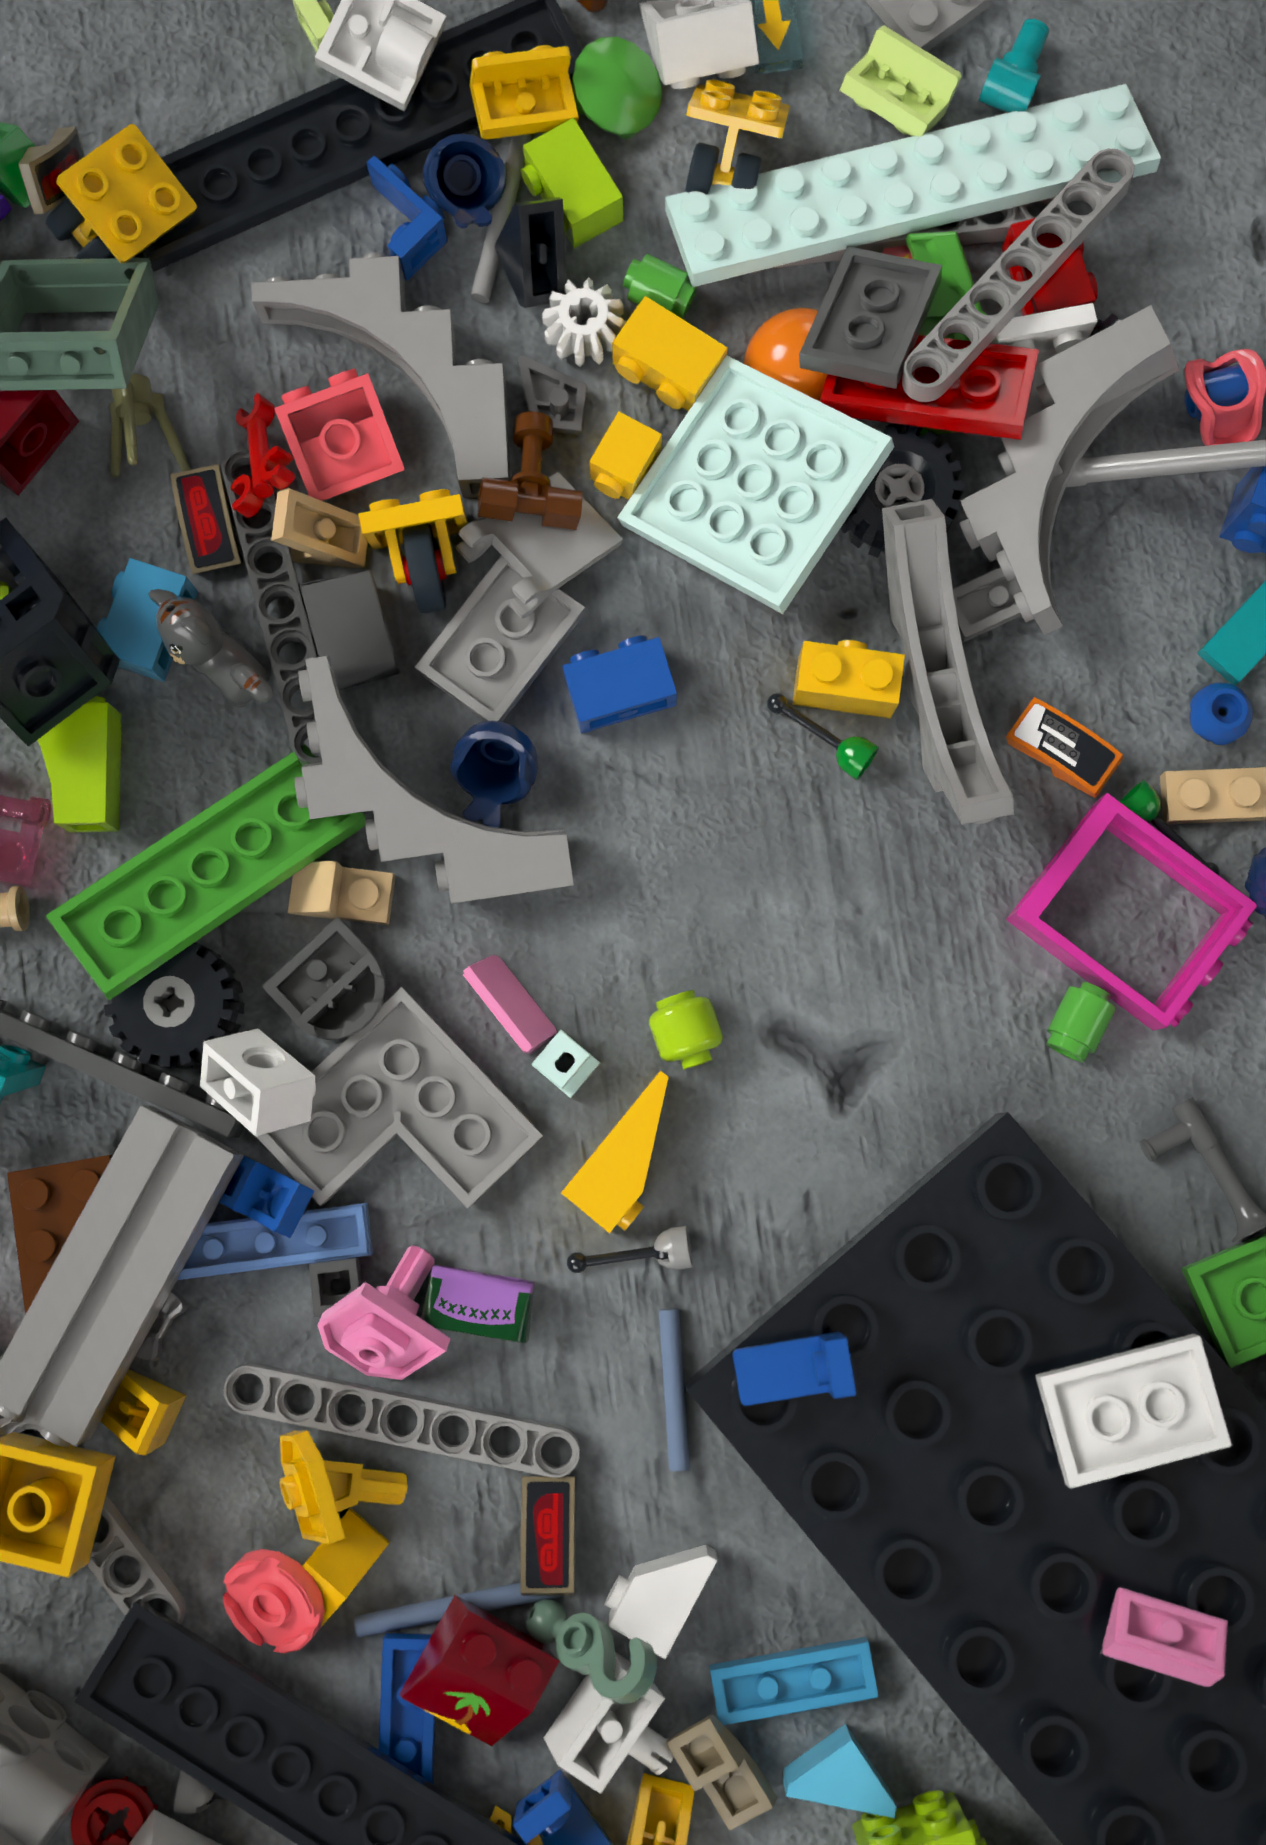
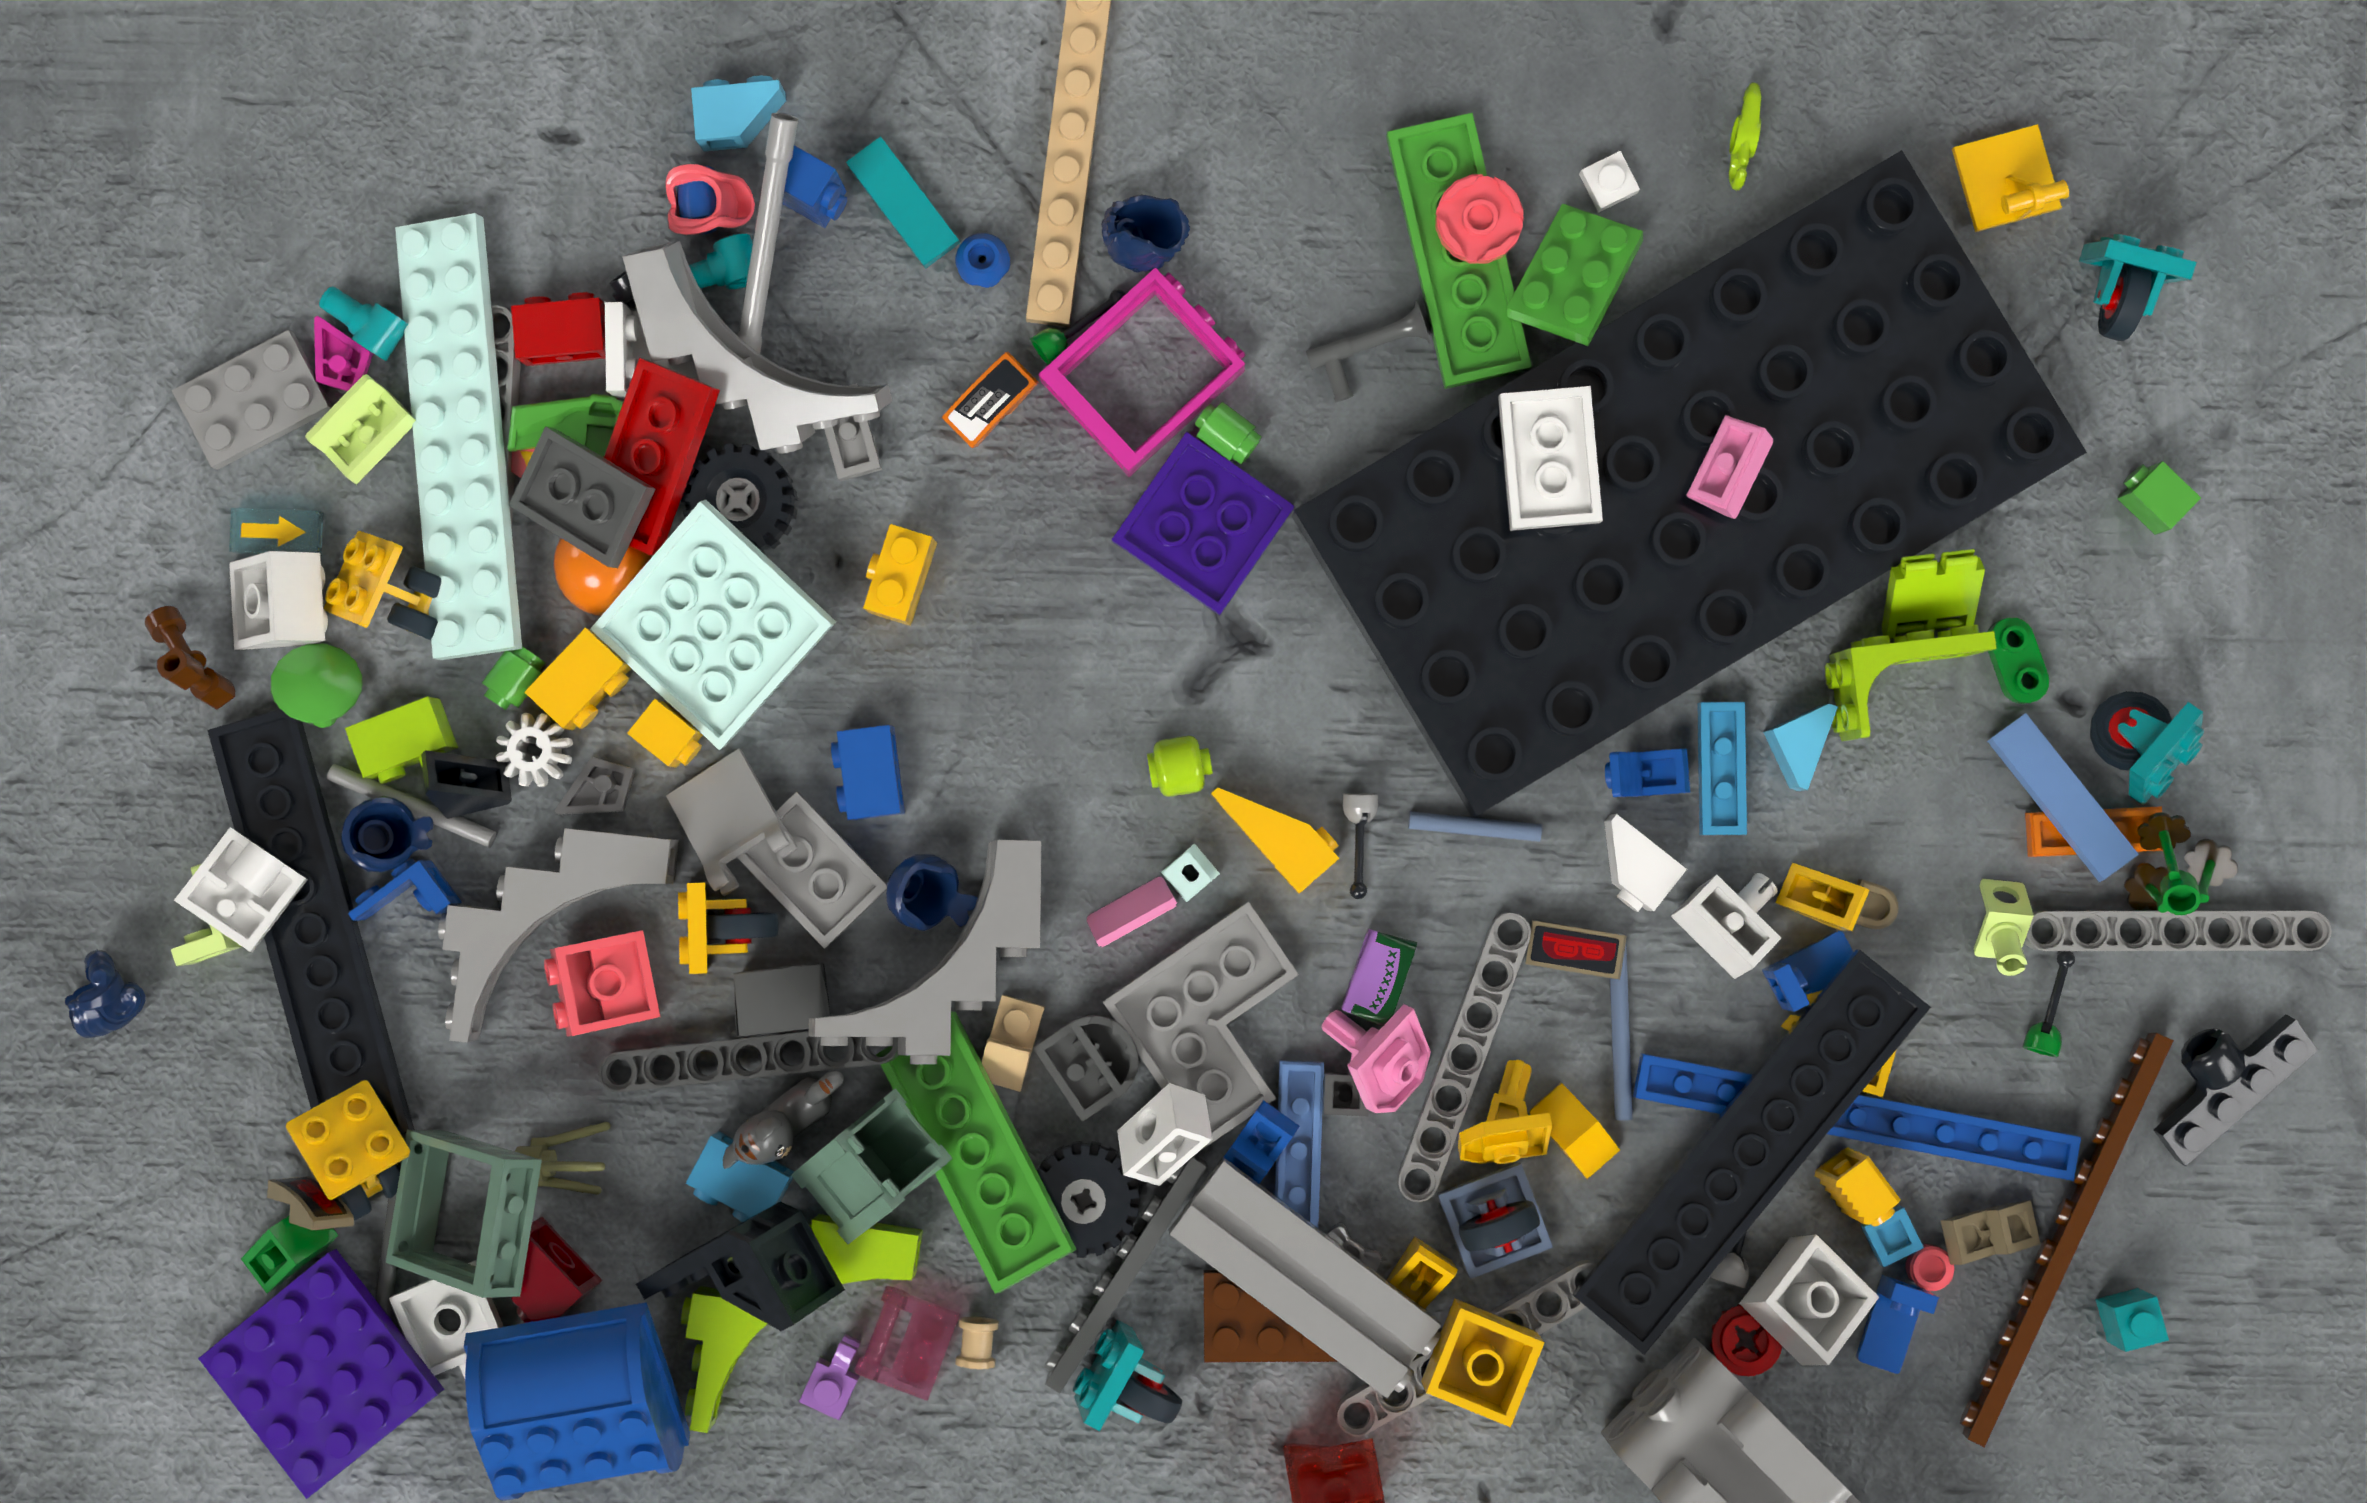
camera: 80 degrees left, 5 degrees up
(191, 772) = (871, 1166): none -> sand green container
(205, 518) = (656, 1113): slope -> none
(215, 1489) = (1494, 1220): none -> sand blue plate
(266, 465) = (626, 1051): red bar -> none
(273, 1600) = (1591, 1183): coral tile -> none
(318, 531) = (687, 1012): tan slope -> none
(479, 1673) = (1675, 1022): dark red slope -> none
(522, 91) = (314, 769): yellow bracket -> none
(530, 489) = (685, 822): reddish brown bar -> none
(588, 1648) = (1668, 929): sand green piece -> none
(721, 1765) = (1779, 837): dark tan slope -> none
(772, 1591) = (1648, 773): none -> blue bracket
(794, 1369) = (1474, 725): blue bracket -> none
(852, 754) = (964, 582): hinge -> none
(936, 671) = (905, 498): light grey arch -> none
(970, 1011) = (1203, 523): none -> dark purple plate
(974, 49) = (338, 357): none -> dark pink piece
(1014, 294) = (586, 370): light grey beam -> none
(1155, 427) = (726, 264): none -> teal pin

